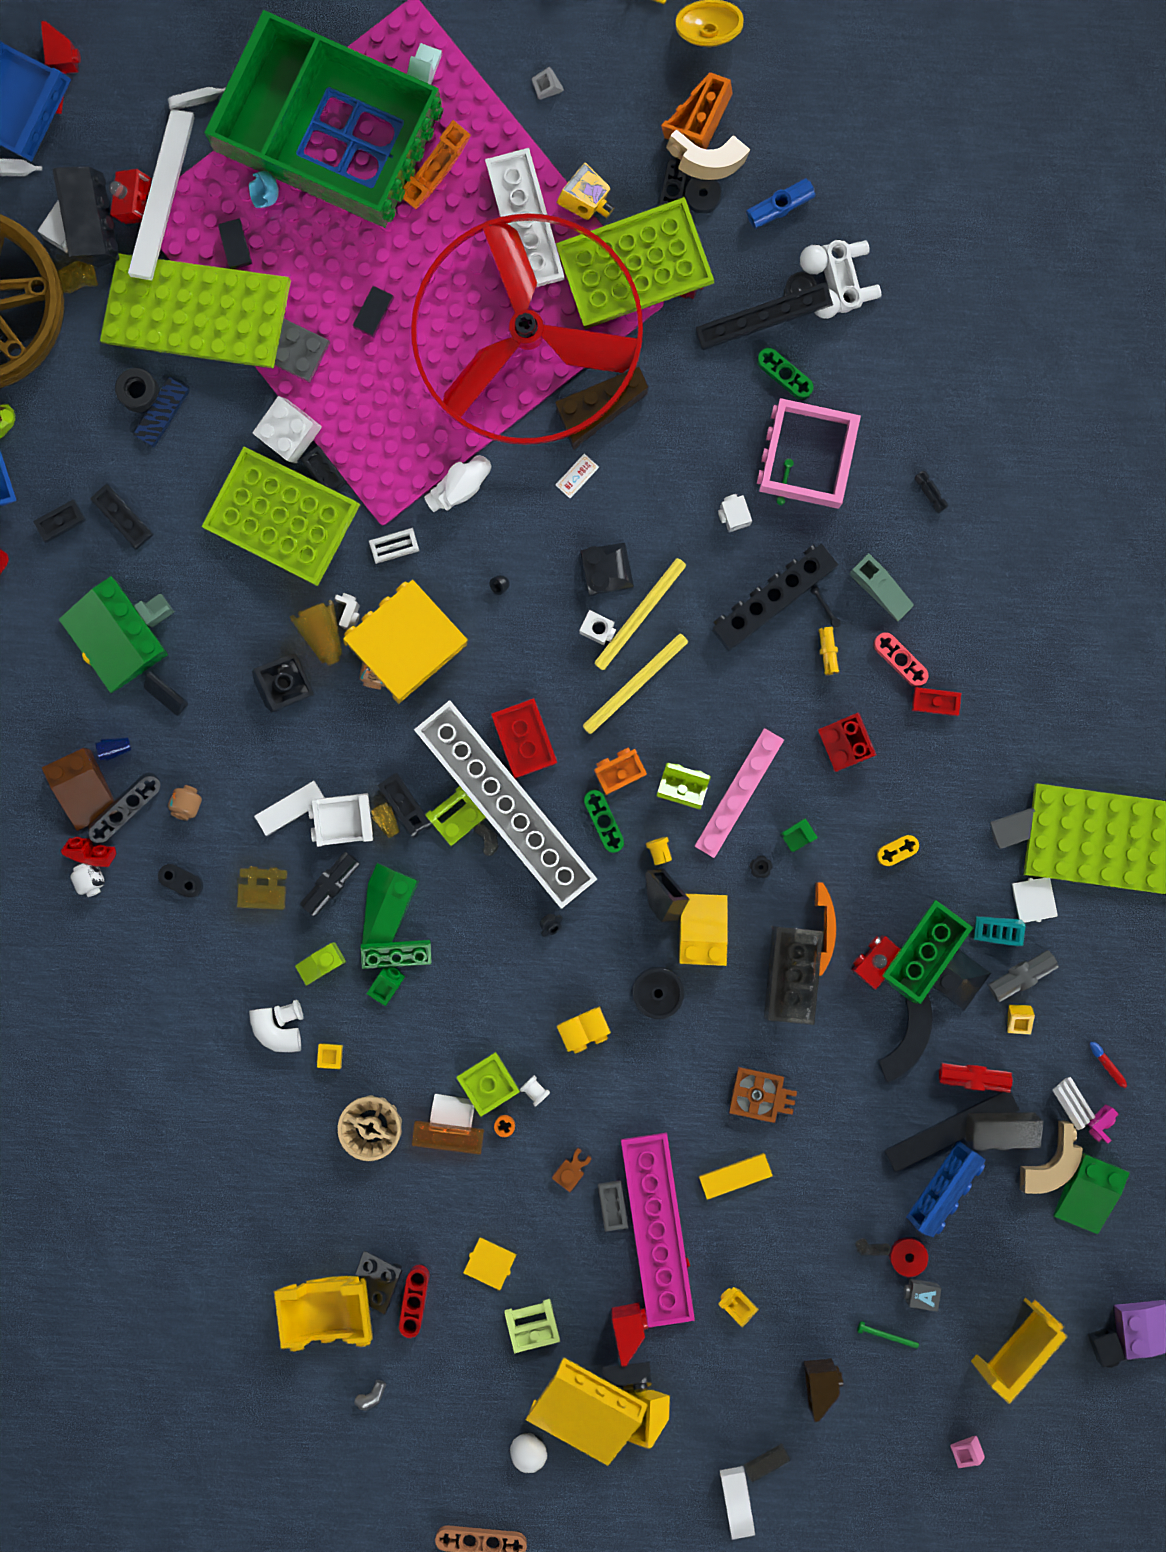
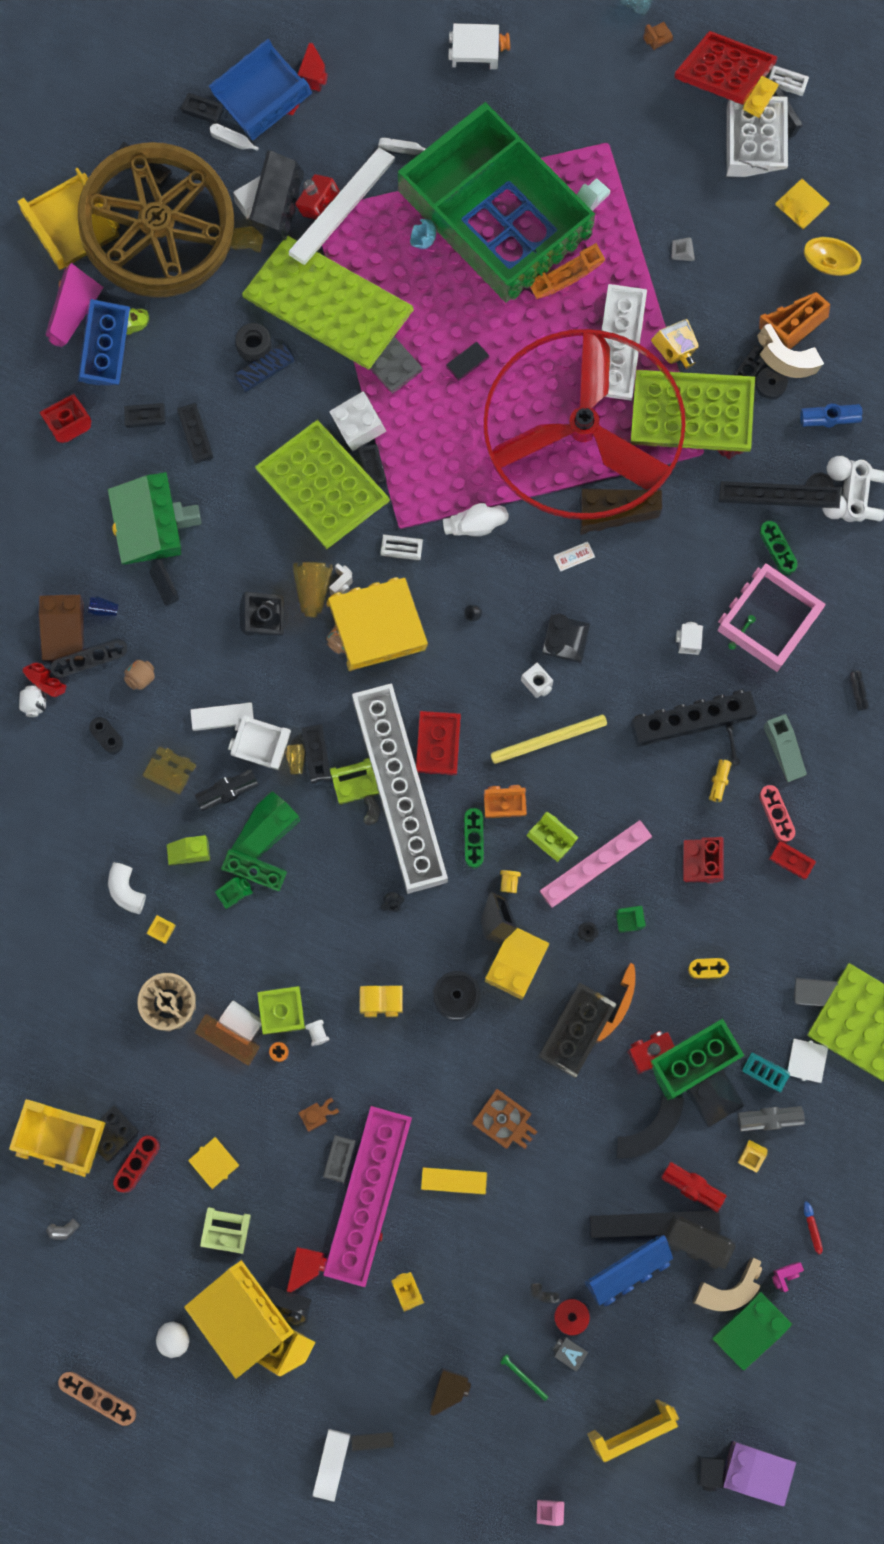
camera: 15 degrees right, 10 degrees down
(235, 244) = (382, 265): black slope -> none
(288, 1012) = (144, 879): white bush -> none
(640, 614) = (577, 685): light yellow axle -> none
(1082, 1113) = (769, 1246): white tile -> none

